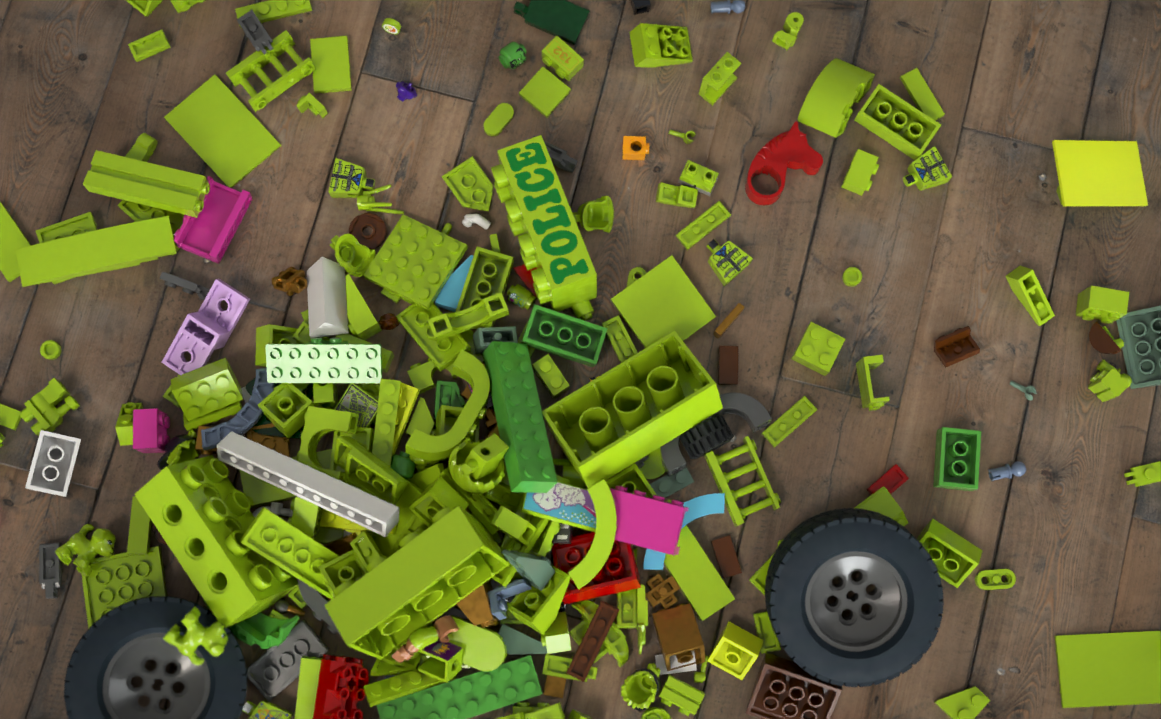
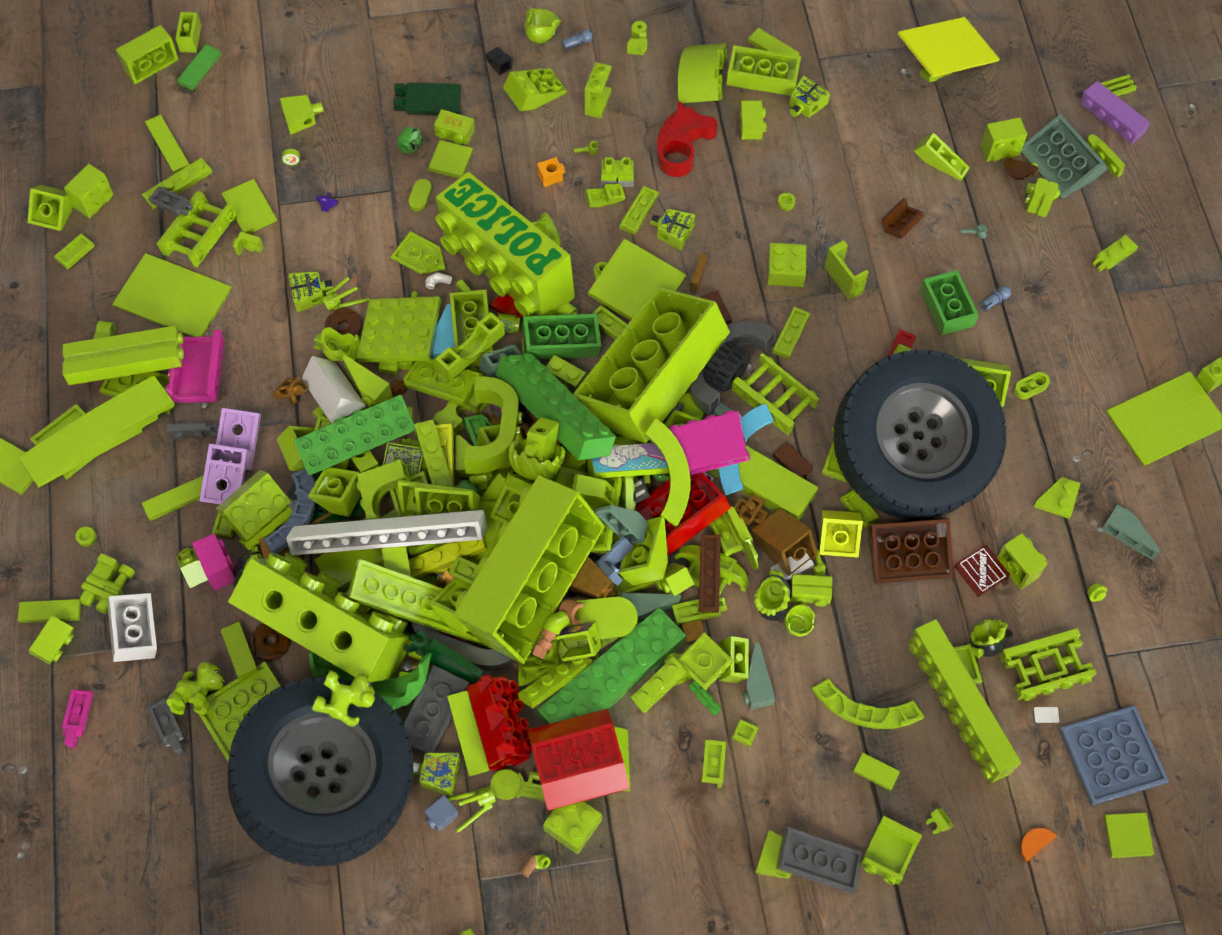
camera: 20 degrees left, 15 degrees down
(141, 346) = (174, 499): none -> lime tile
(294, 603) = (443, 657): none -> dark green tile

